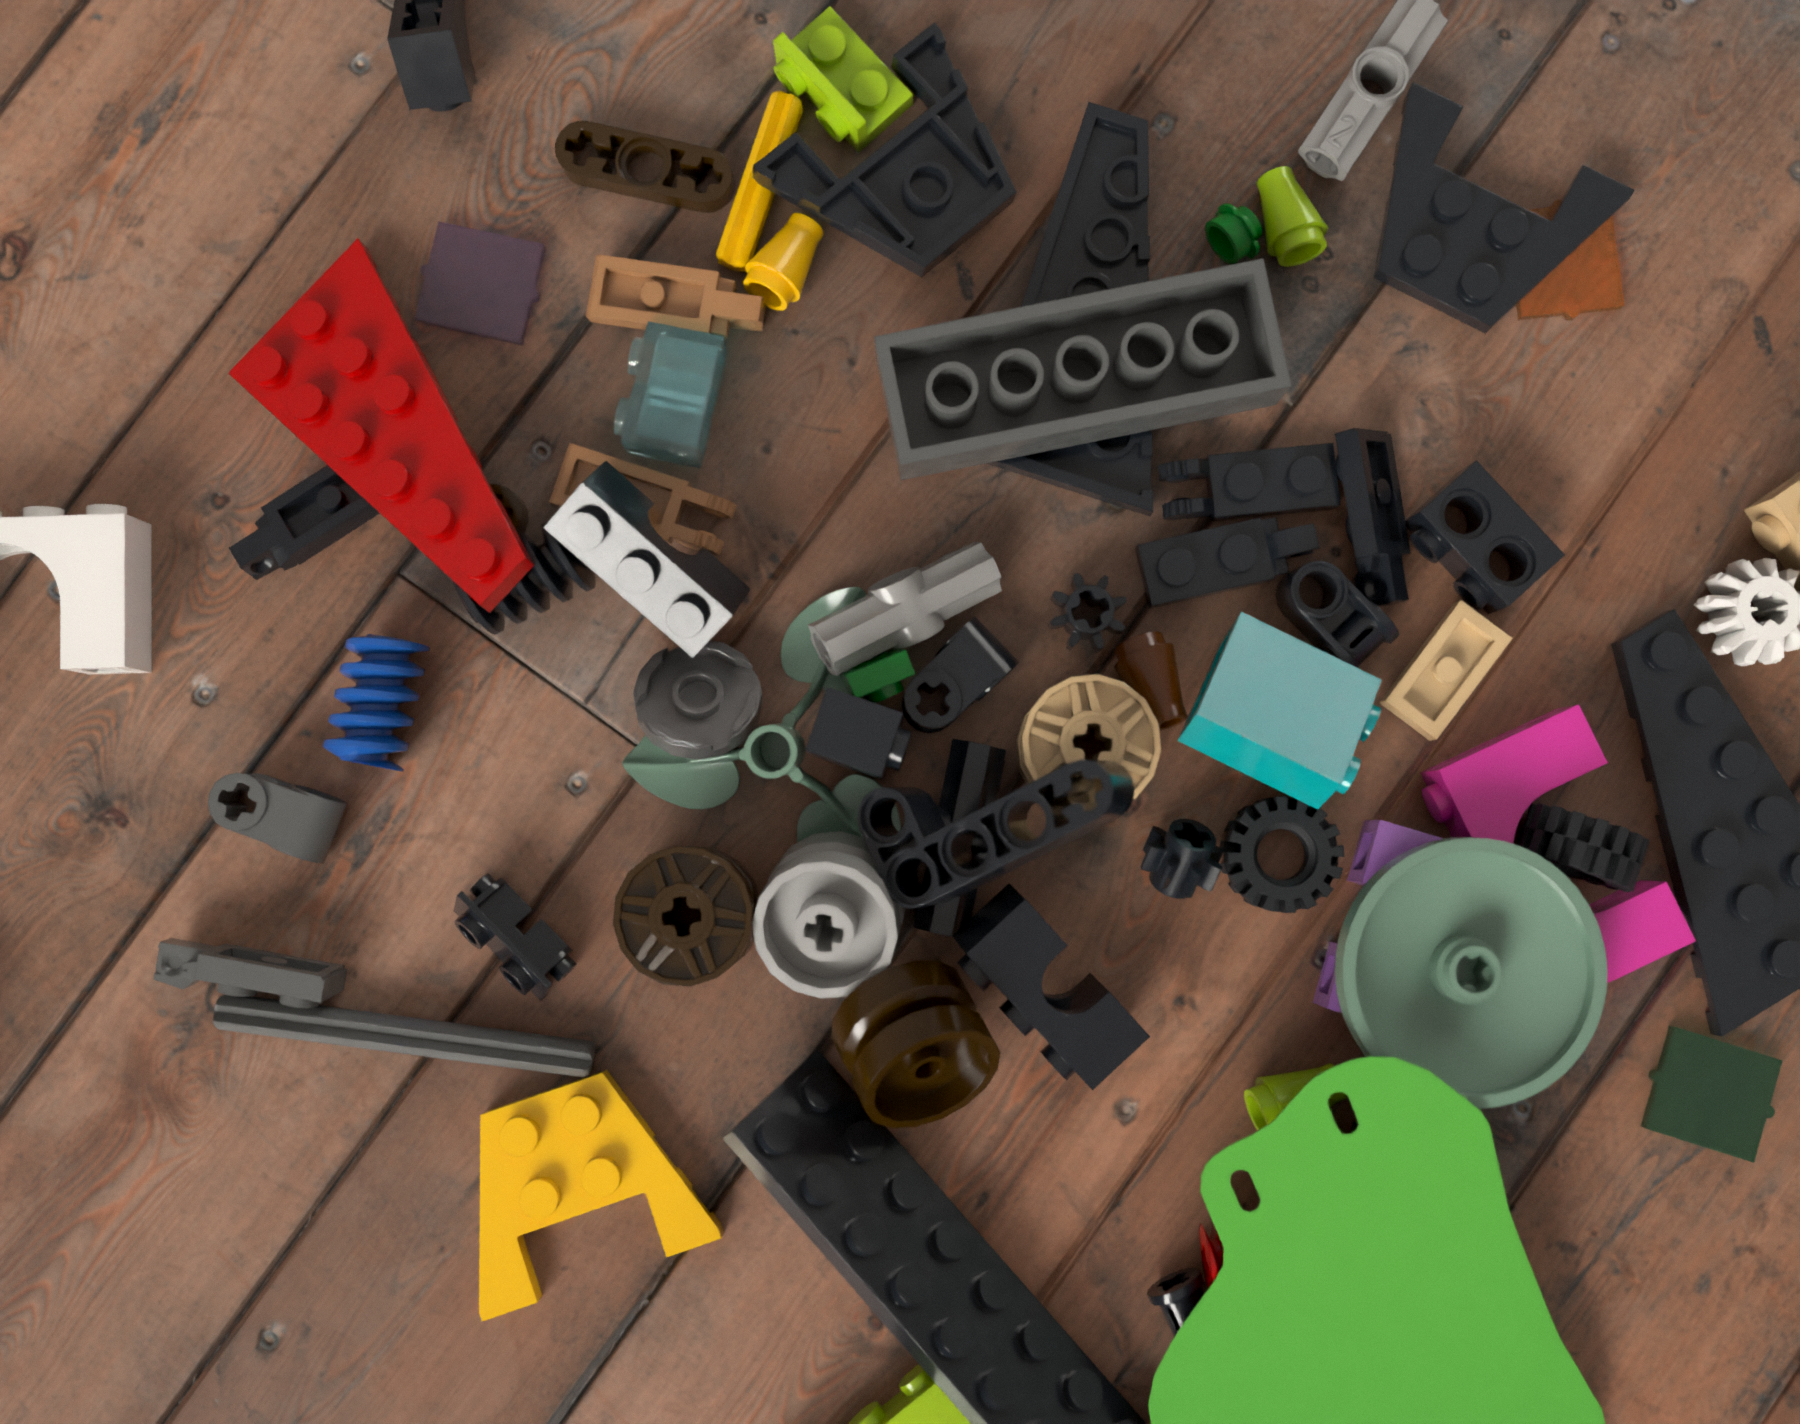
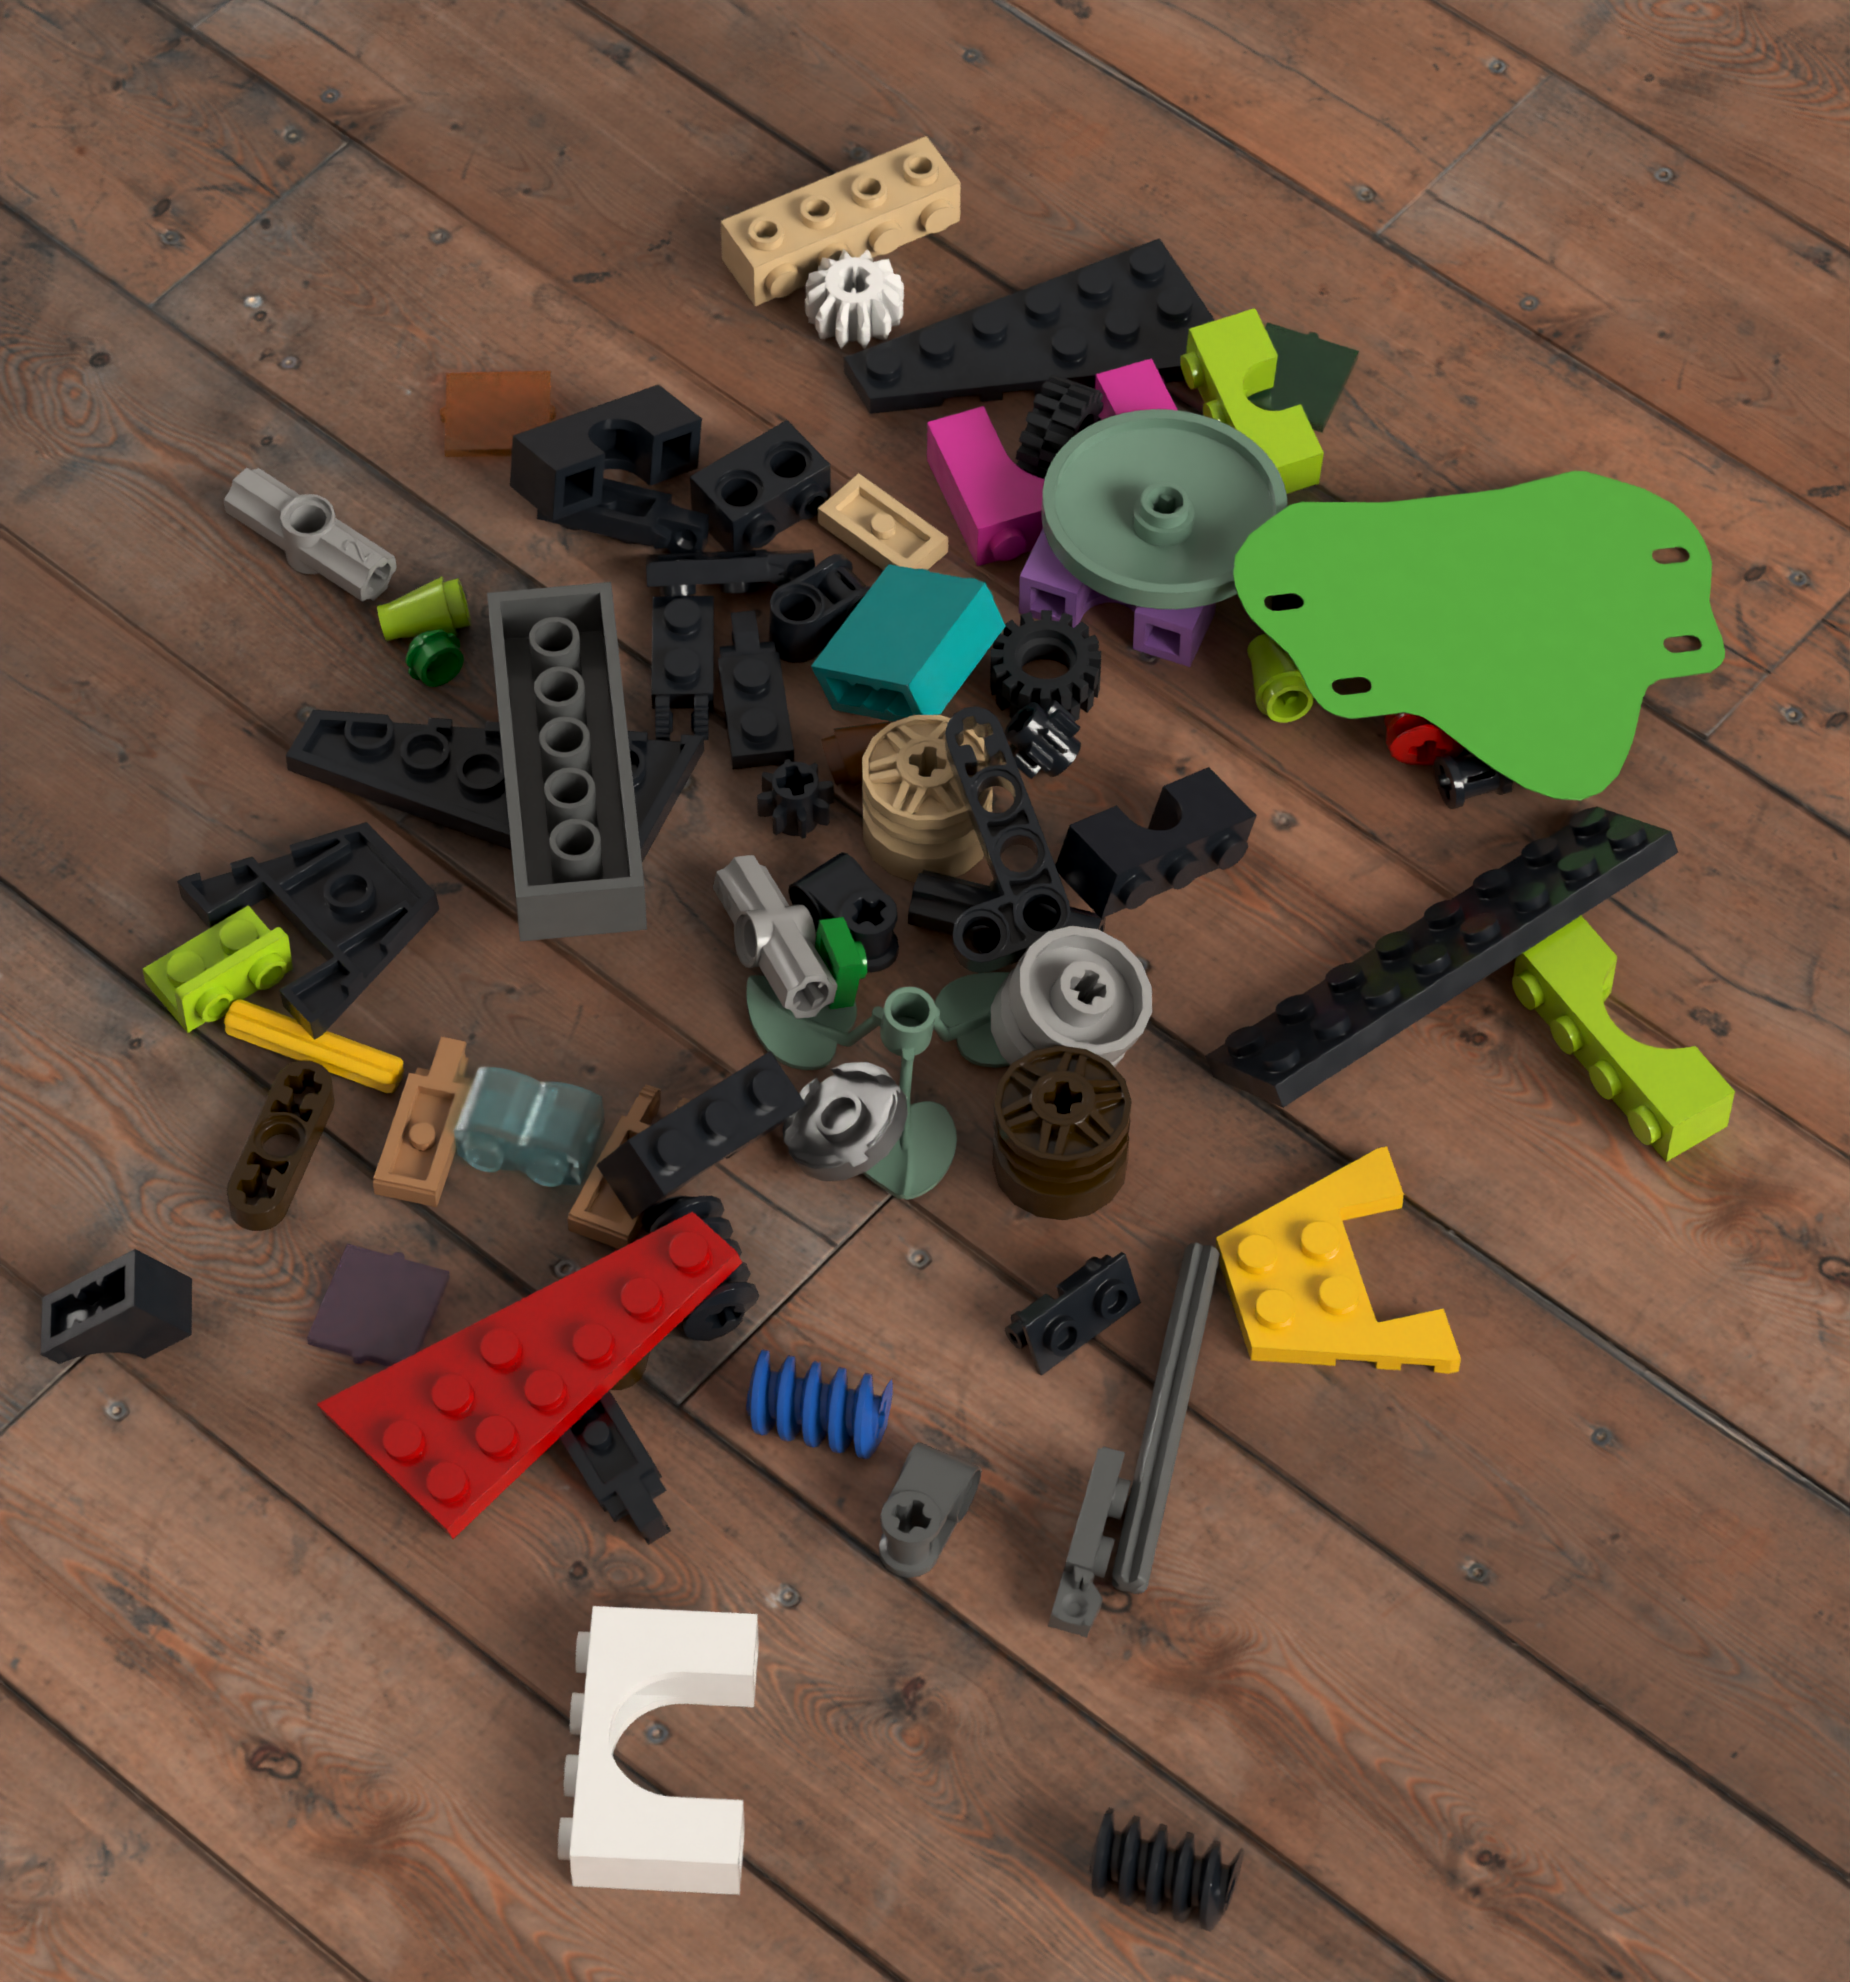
camera: 90 degrees left, 30 degrees down
(784, 263) = (404, 1024): yellow cone -> none
(858, 735) = (897, 952): black brick -> none
(914, 1044) = (1201, 940): dark brown wheel -> none
(1438, 397) = (642, 518): none -> black hinge
(1464, 243) = (462, 488): black wing -> none
(1536, 398) = (564, 461): none -> black arch
(1698, 1018) = (1229, 364): none -> lime arch

